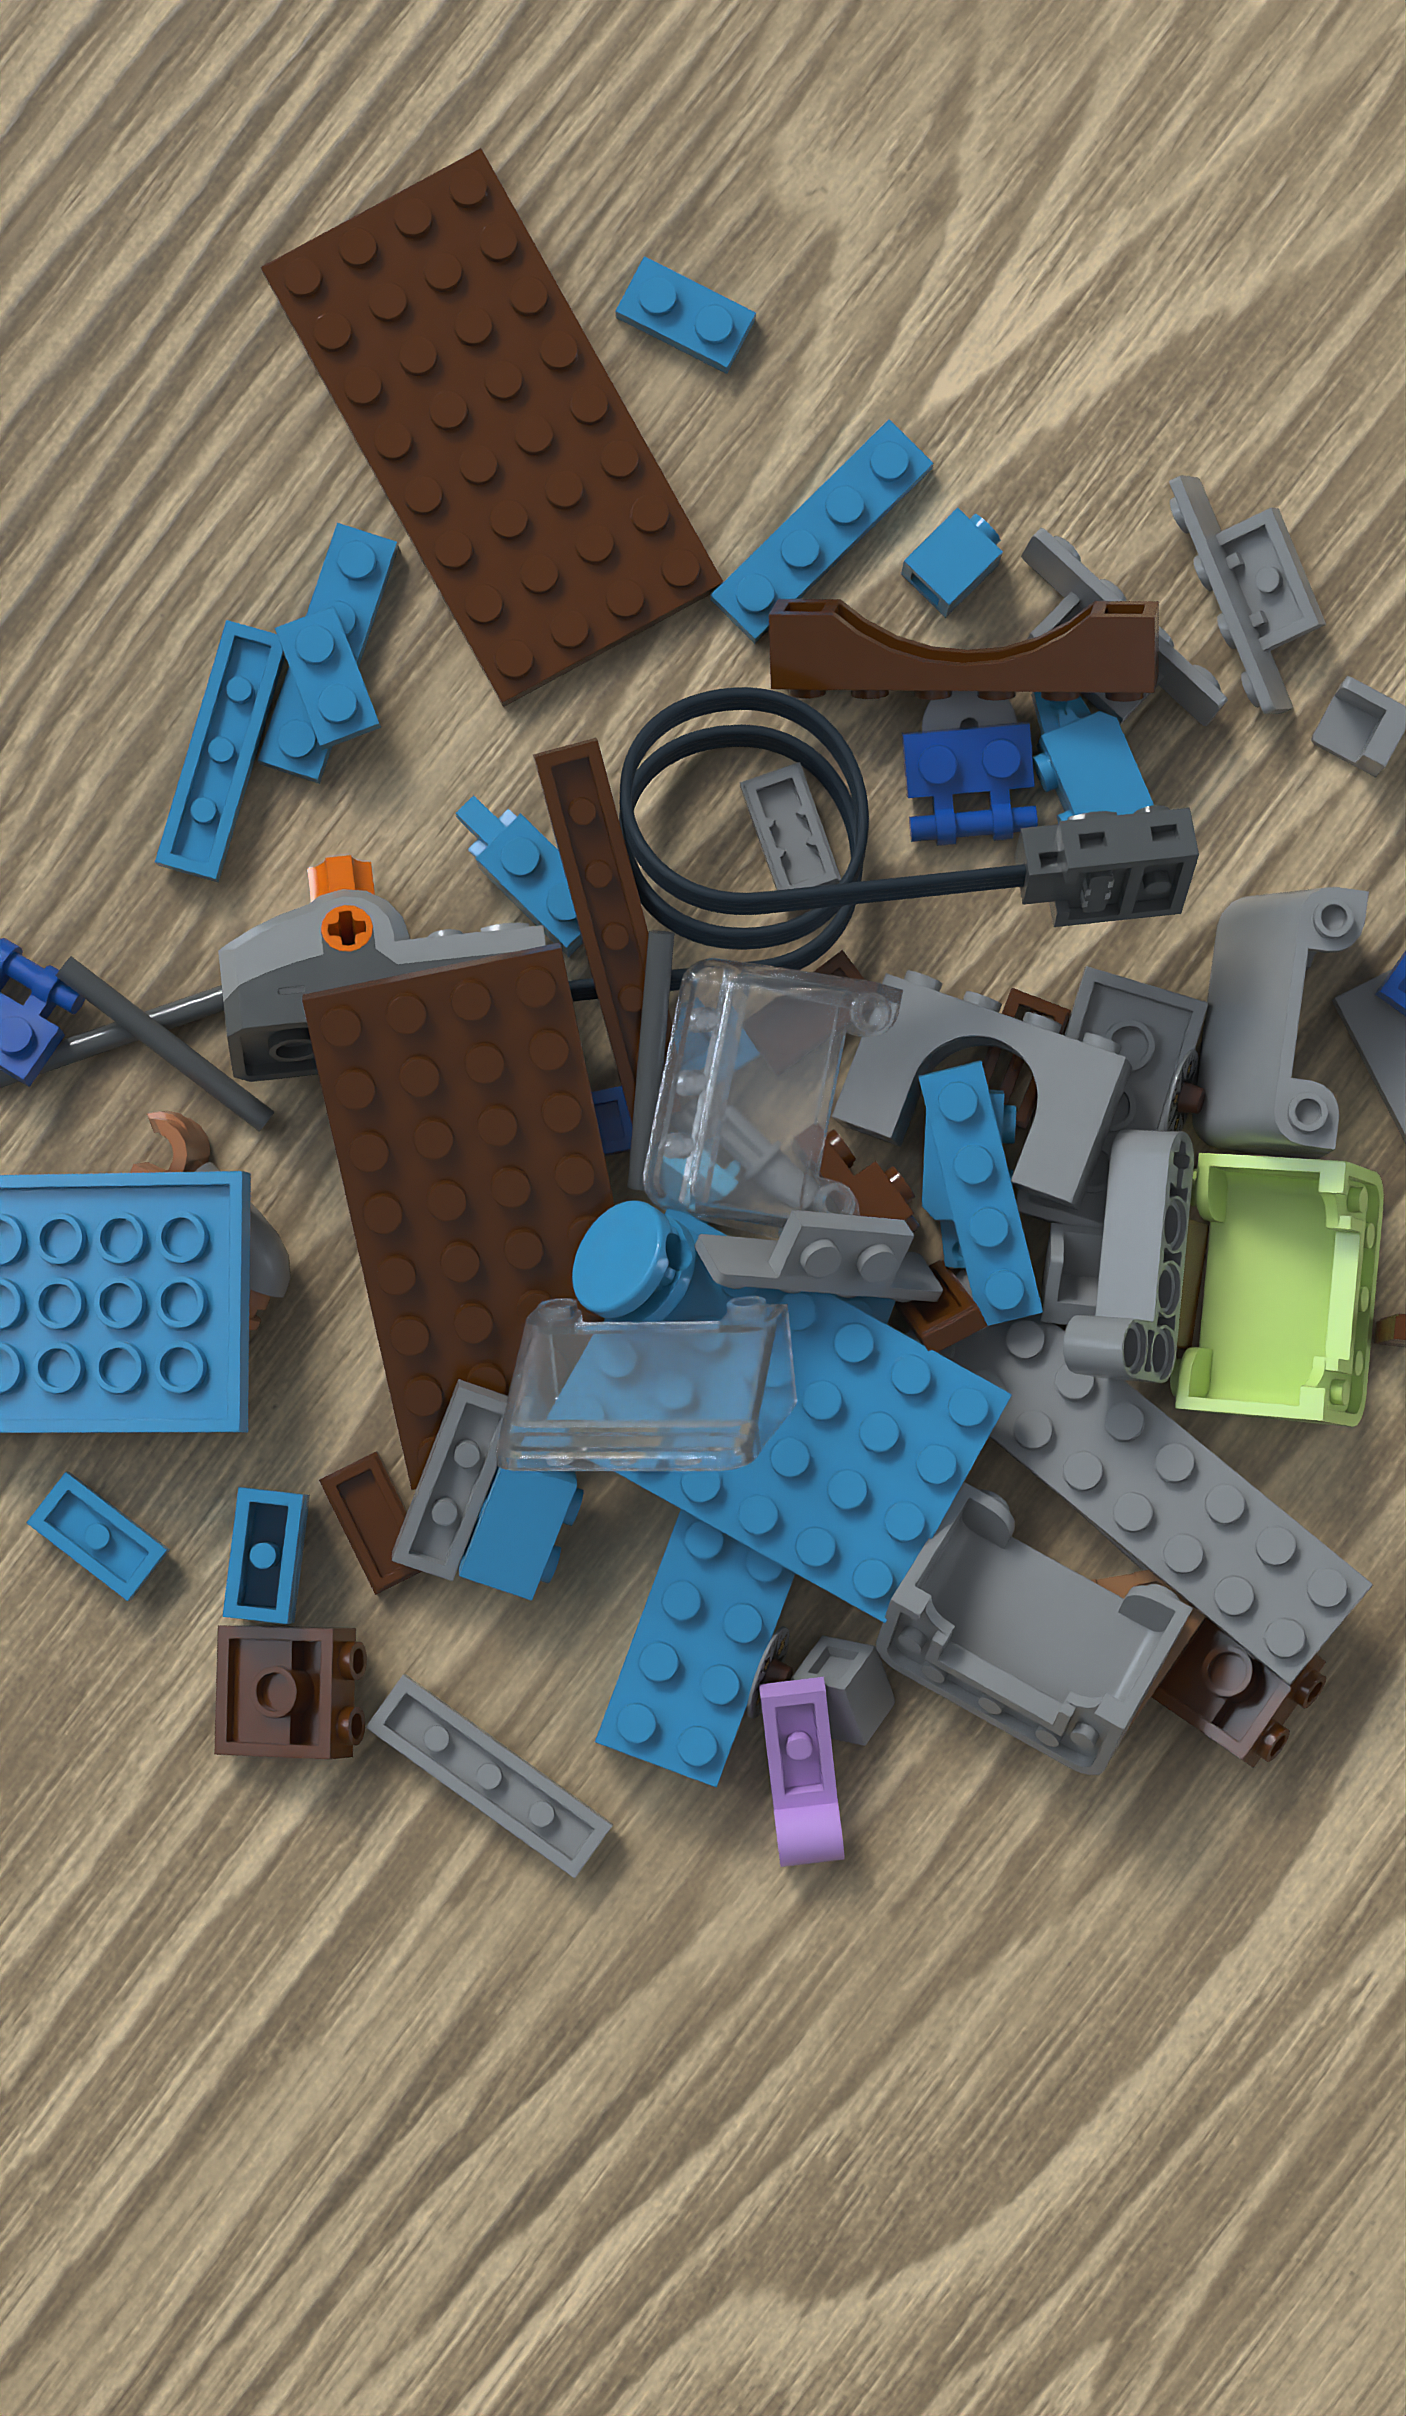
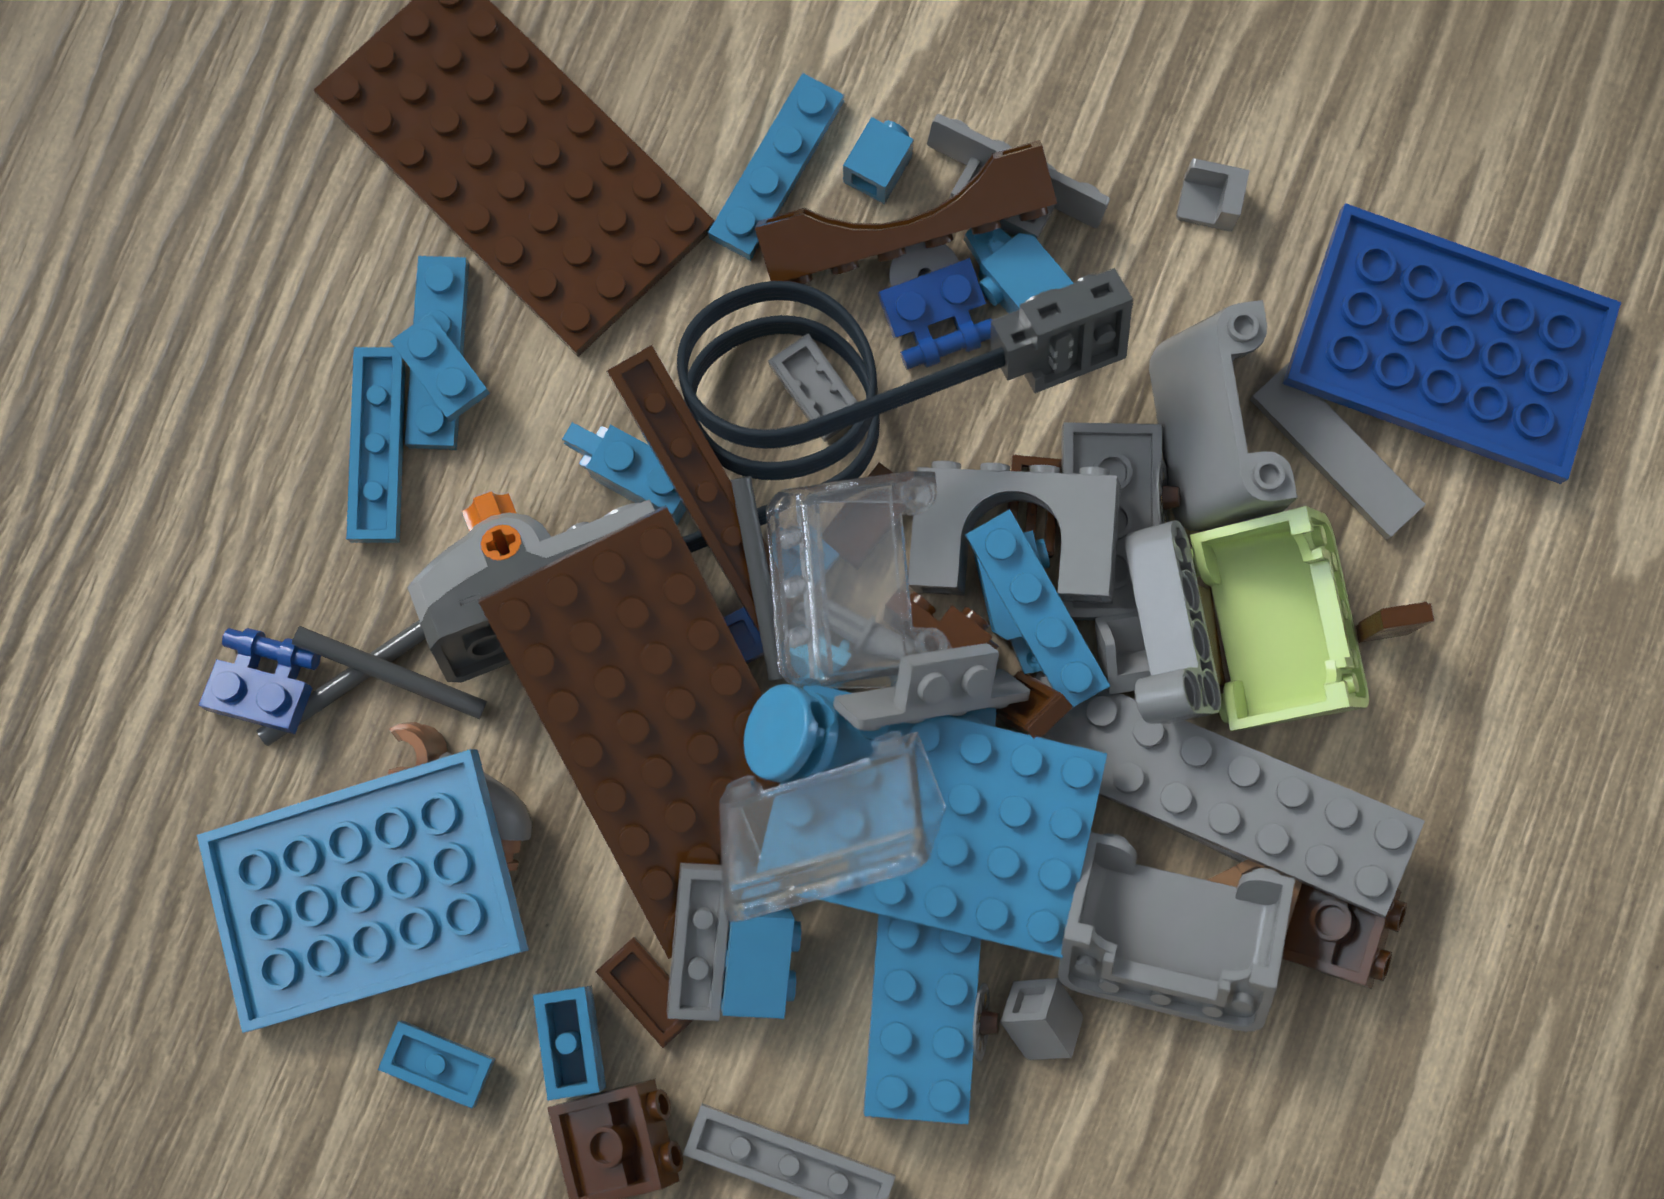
camera: 15 degrees left, 5 degrees down
(685, 315) = (633, 41): dark azure plate -> none
(802, 1771) = (1029, 1092): lavender plate -> none
(1256, 585) = (1106, 116): light grey bracket -> none

